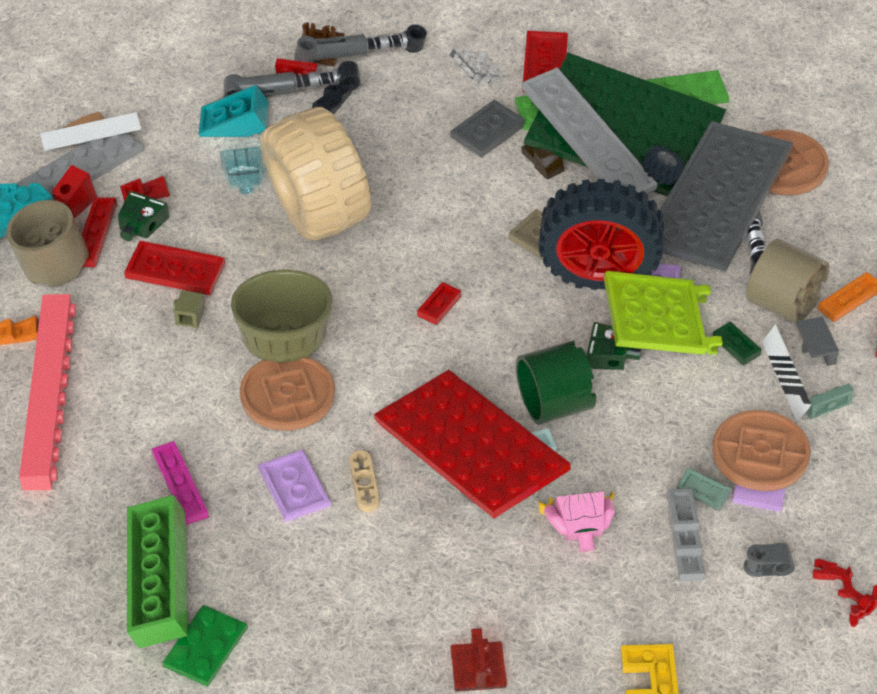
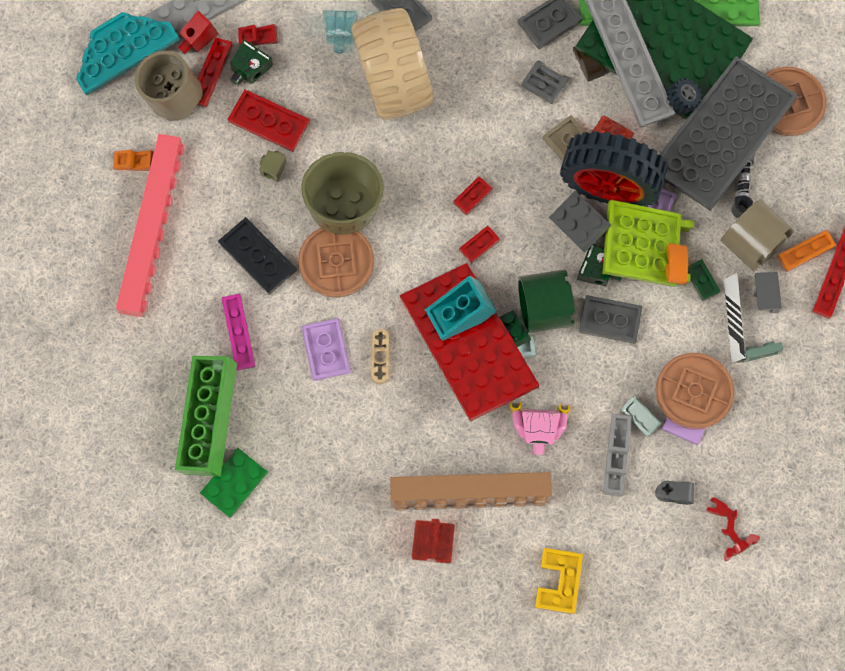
camera: 10 degrees right, 25 degrees up
(188, 401) = (257, 256): none -> black plate
(454, 404) = (460, 308): none -> teal slope
(459, 349) = (479, 244): none -> red plate
(496, 185) = (542, 86): none -> dark grey plate
(511, 594) = (470, 490): none -> medium nougat brick
(527, 420) = (515, 328): none -> dark green plate
(574, 302) = (580, 221): none -> dark grey plate
(638, 398) = (610, 319): none -> dark grey plate
(702, 324) = (677, 263): none -> orange slope

